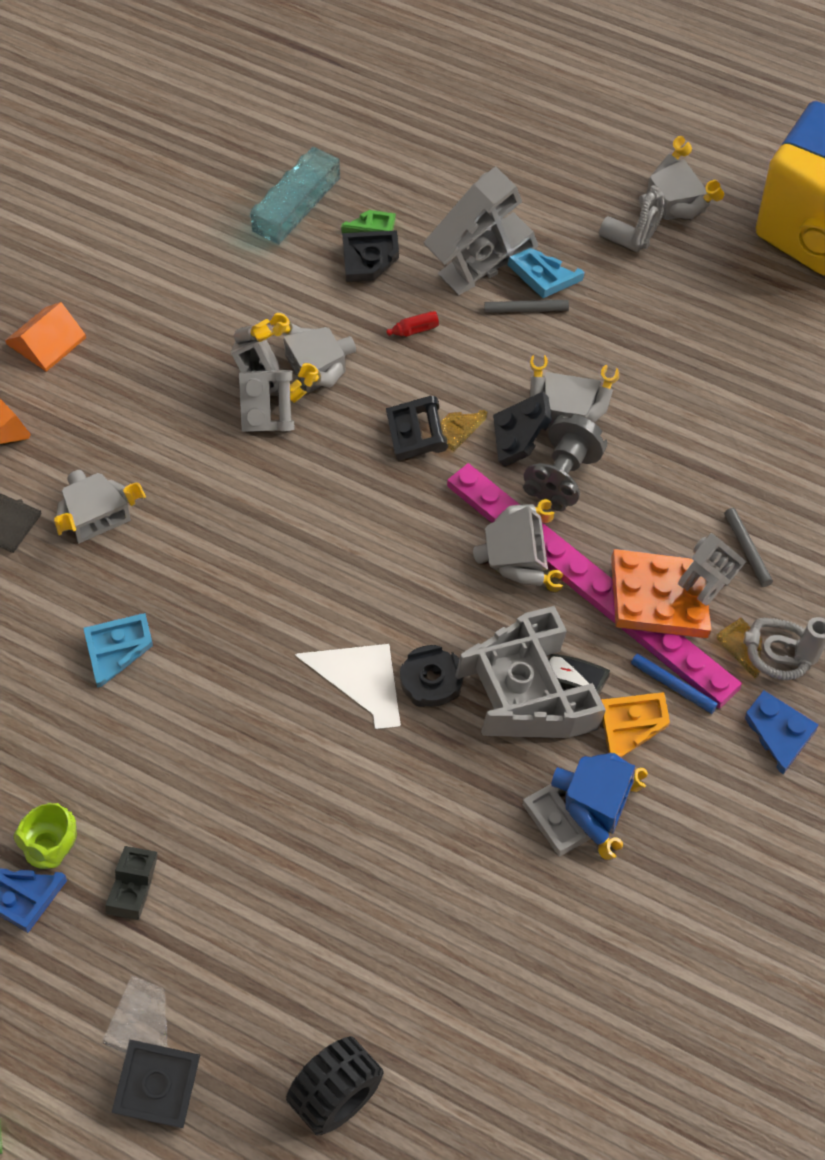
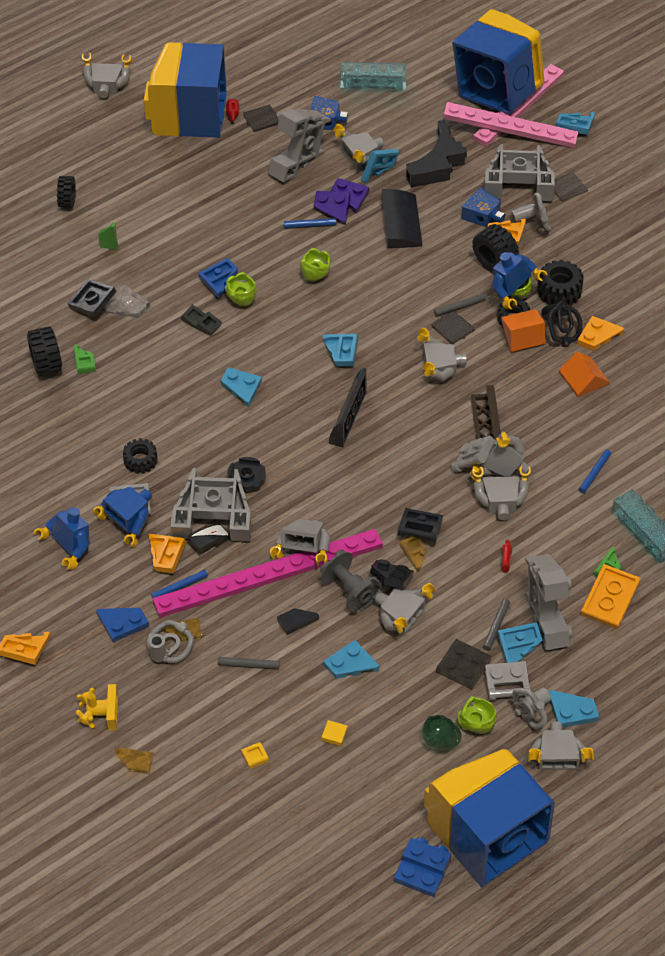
camera: 115 degrees right, 5 degrees down
(182, 410) = (492, 413): none -> dark brown fence
(218, 279) = (595, 470): none -> blue bar
(247, 578) = (349, 410): none -> black slope
(250, 761) = (241, 384): none -> dark azure wing
(301, 1036) = (84, 360): none -> bright green tile
(362, 675) = (268, 450): white sticker -> none
(369, 254) = (579, 552): black plate -> none
(415, 205) = (610, 596): none -> light orange tile
(471, 822) = (143, 464): none -> black tyre
(602, 271) = (505, 674): none -> light grey plate
(606, 320) = (463, 664): none -> clear smoke plate
(607, 199) = (573, 709): none -> dark azure wing
(648, 518) = (296, 619): none -> black tile
(650, 596) = (236, 596): orange plate -> none
(675, 436) = (350, 661): none -> dark azure wing
(680, 862) = (70, 532): none -> blue torso
(684, 269) = (477, 718): none -> lime hair
(714, 563) = (225, 607): light grey plate -> none
(729, 300) = (441, 733): none -> clear green hair
(791, 413) = (334, 733): none -> yellow tile

